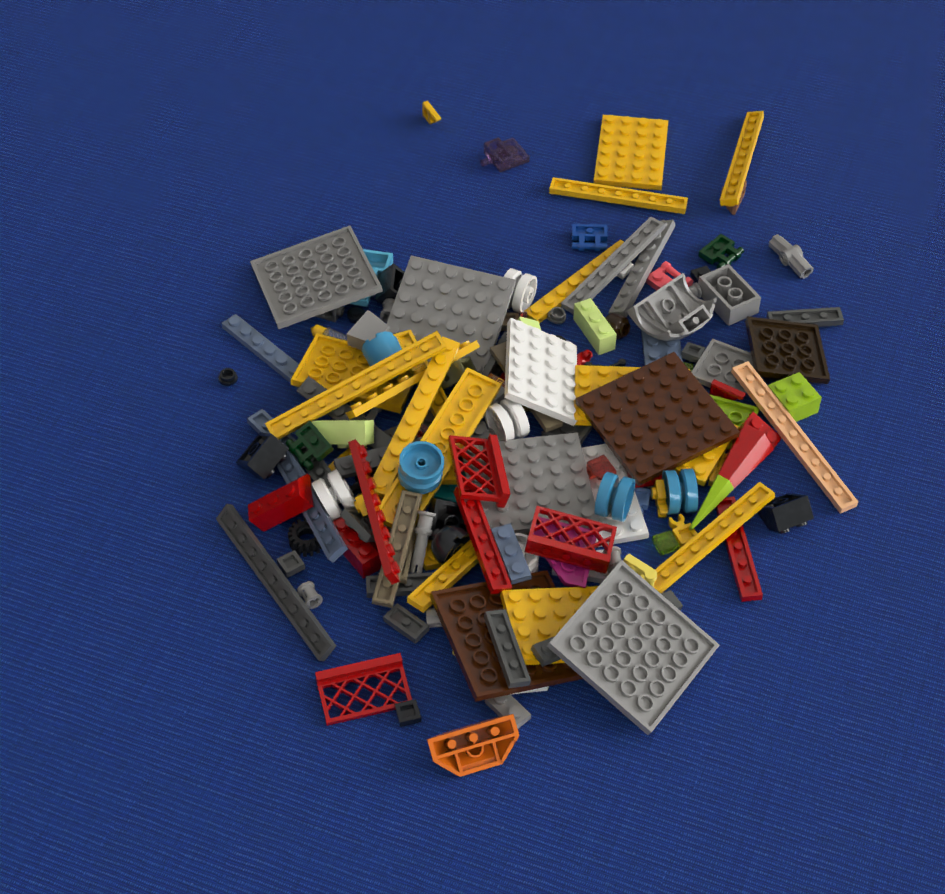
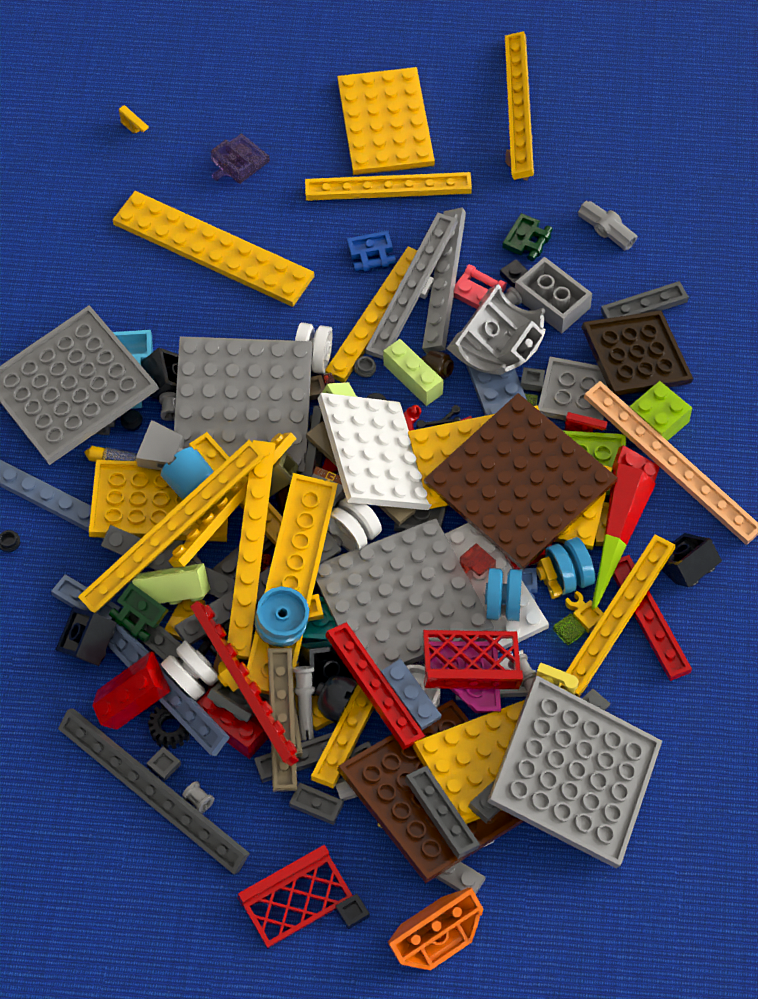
camera: 15 degrees left, 10 degrees up
(465, 212) = (214, 248): none -> yellow plate
(494, 469) = (363, 596): red fence -> none

